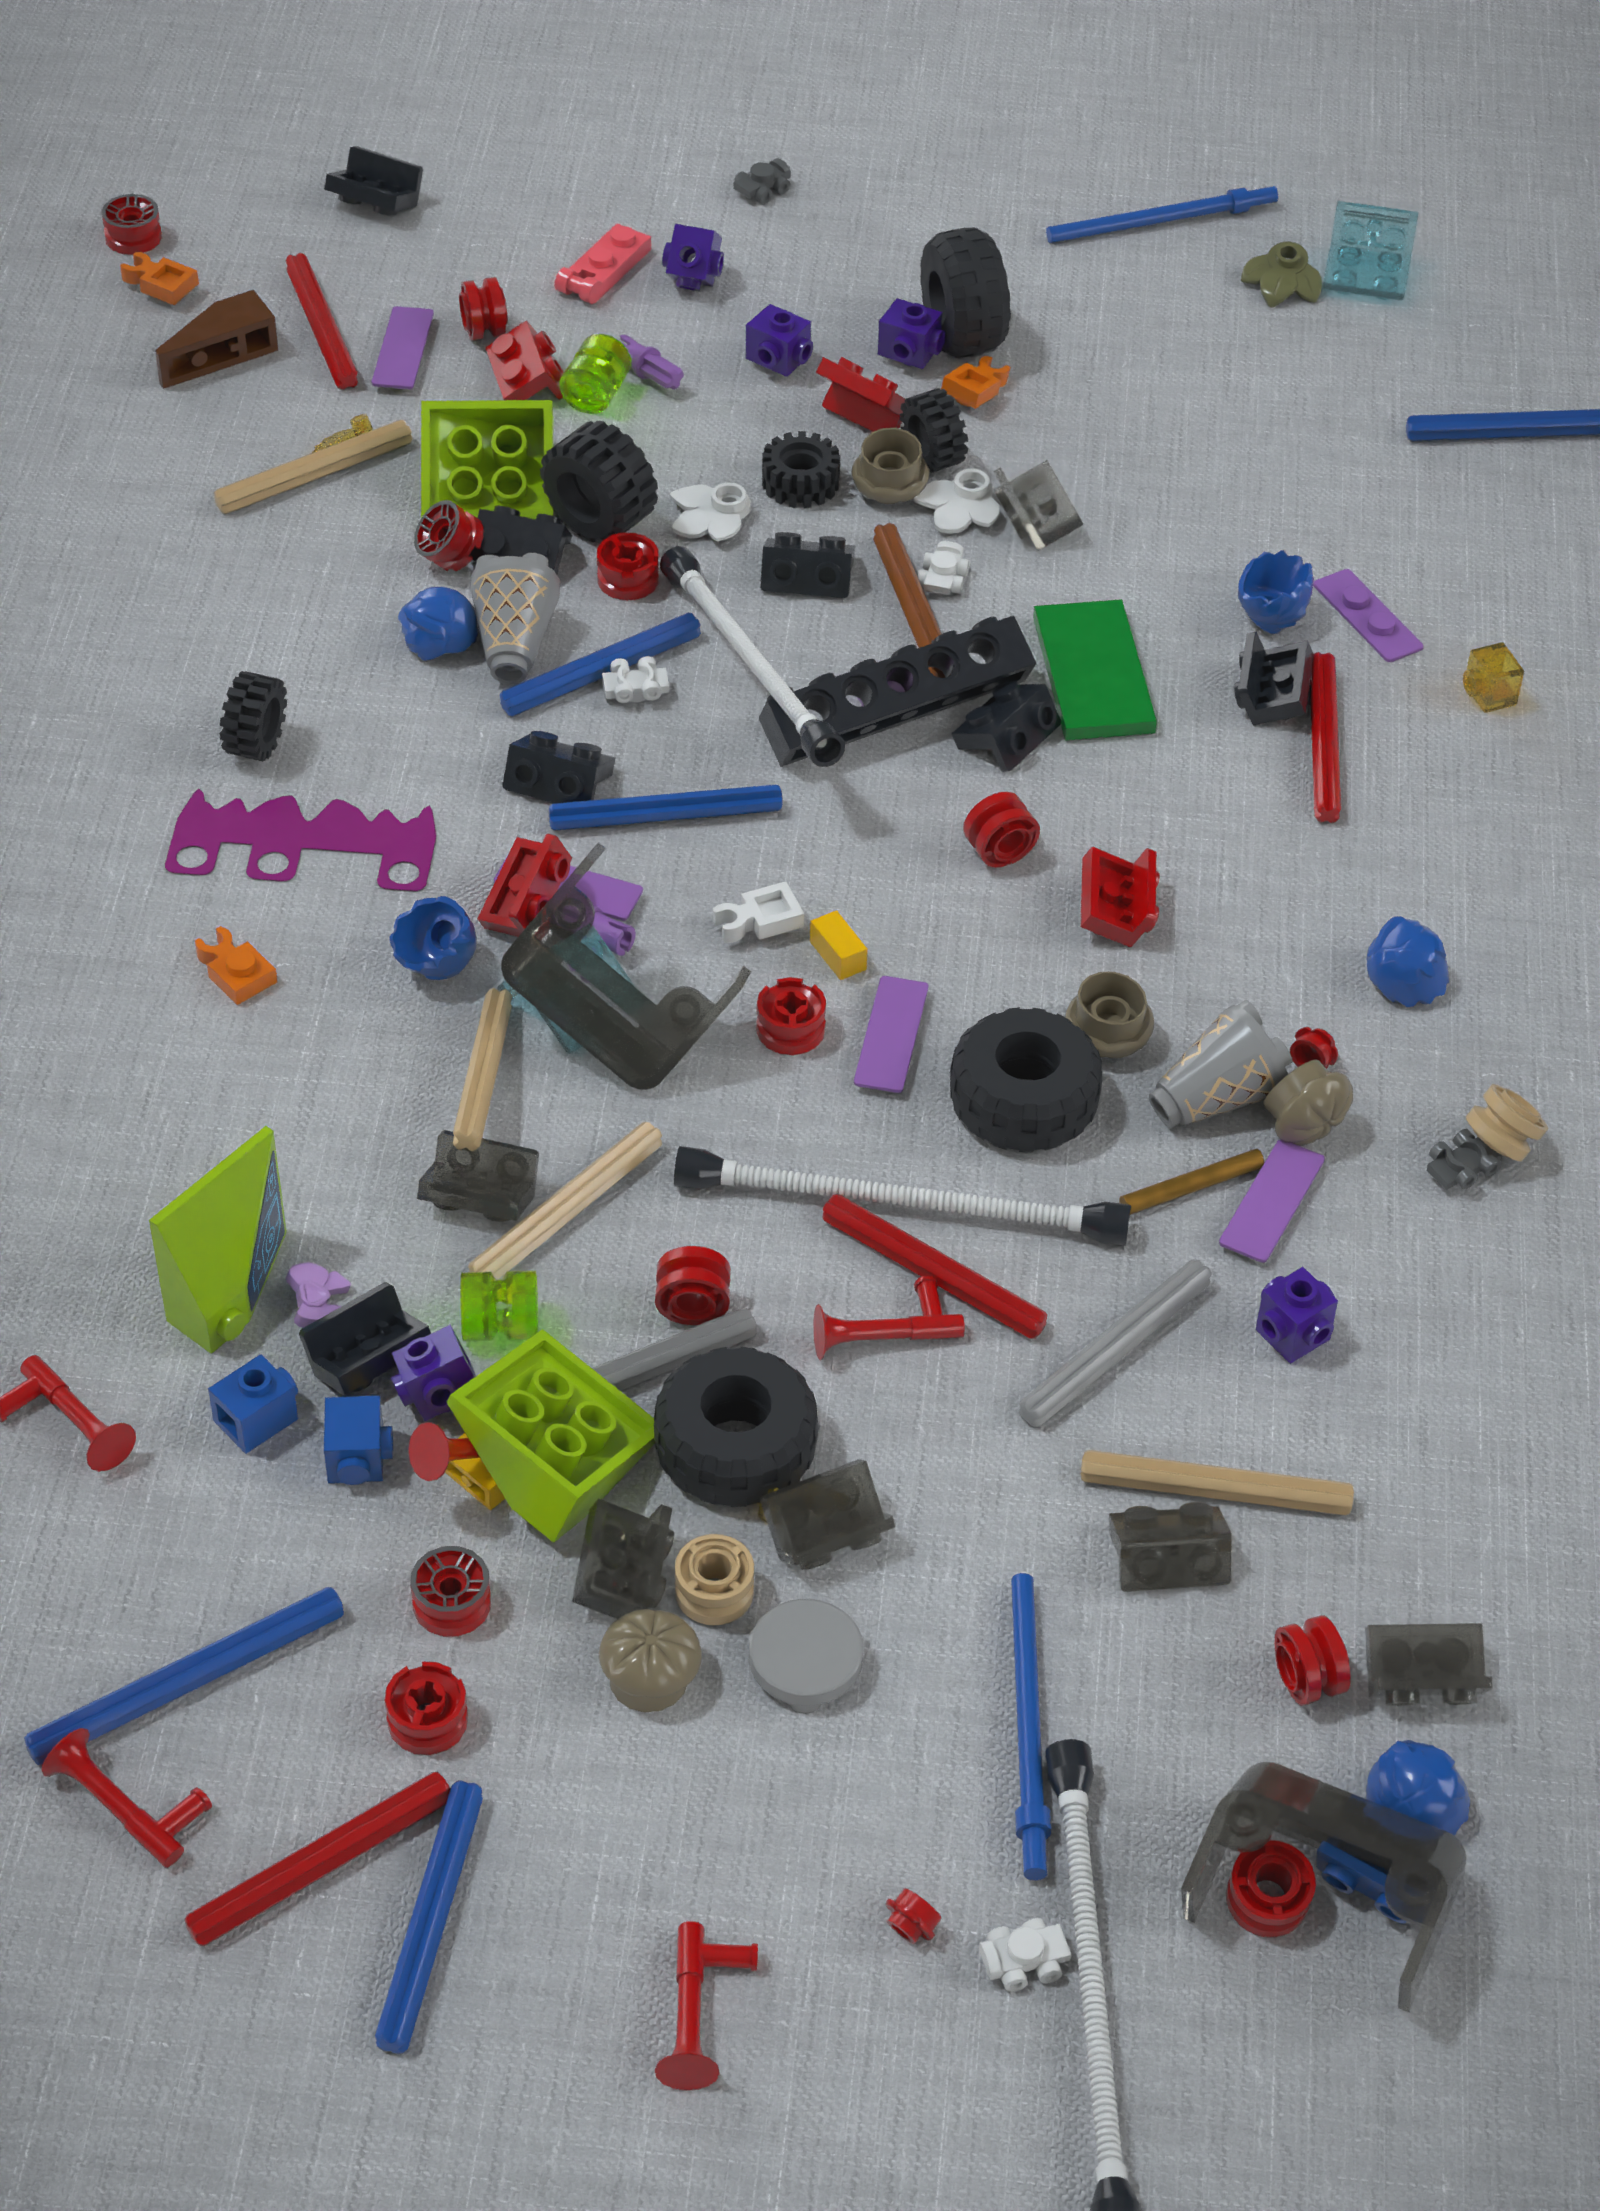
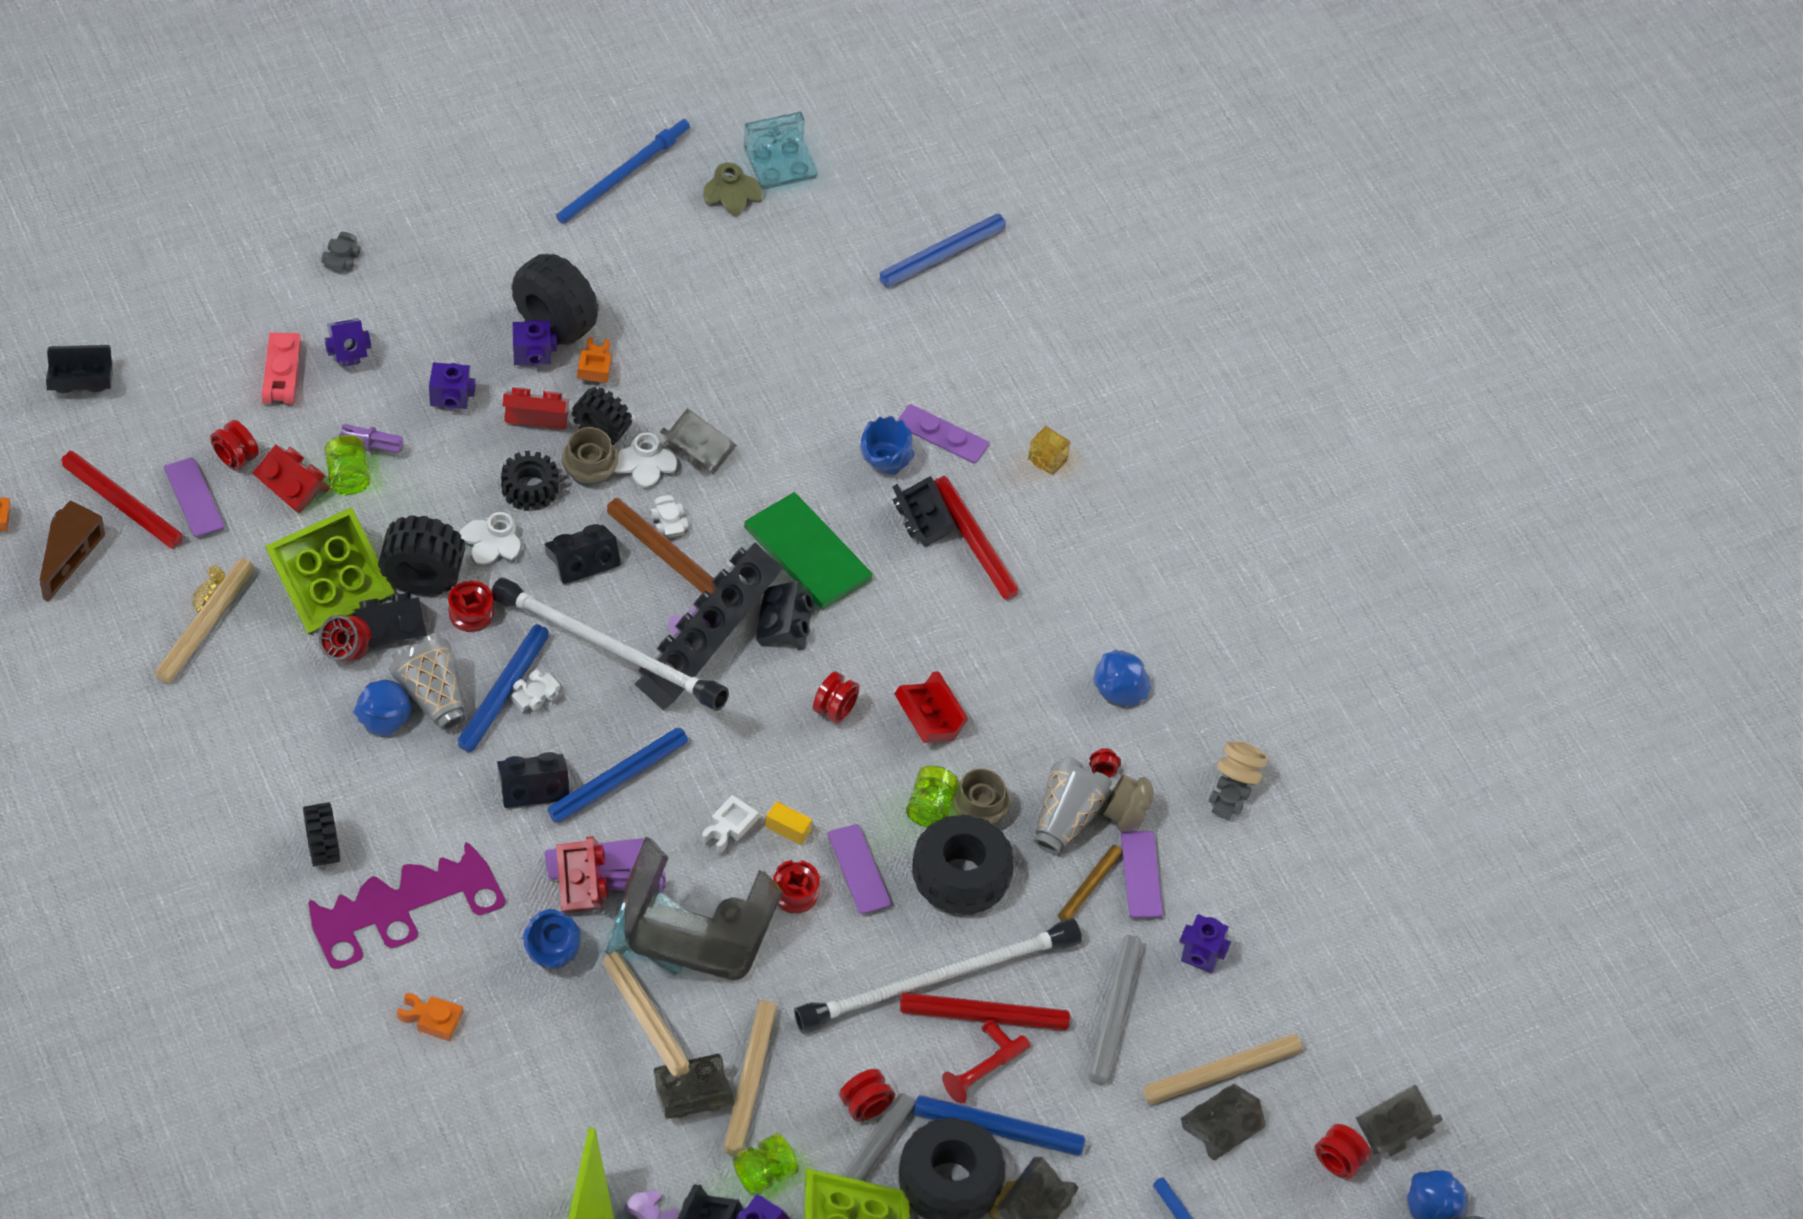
camera: 35 degrees left, 5 degrees up
(858, 1411) = (1002, 1125): none -> blue axle
(1046, 982) = (932, 795): none -> clear neon green wheel

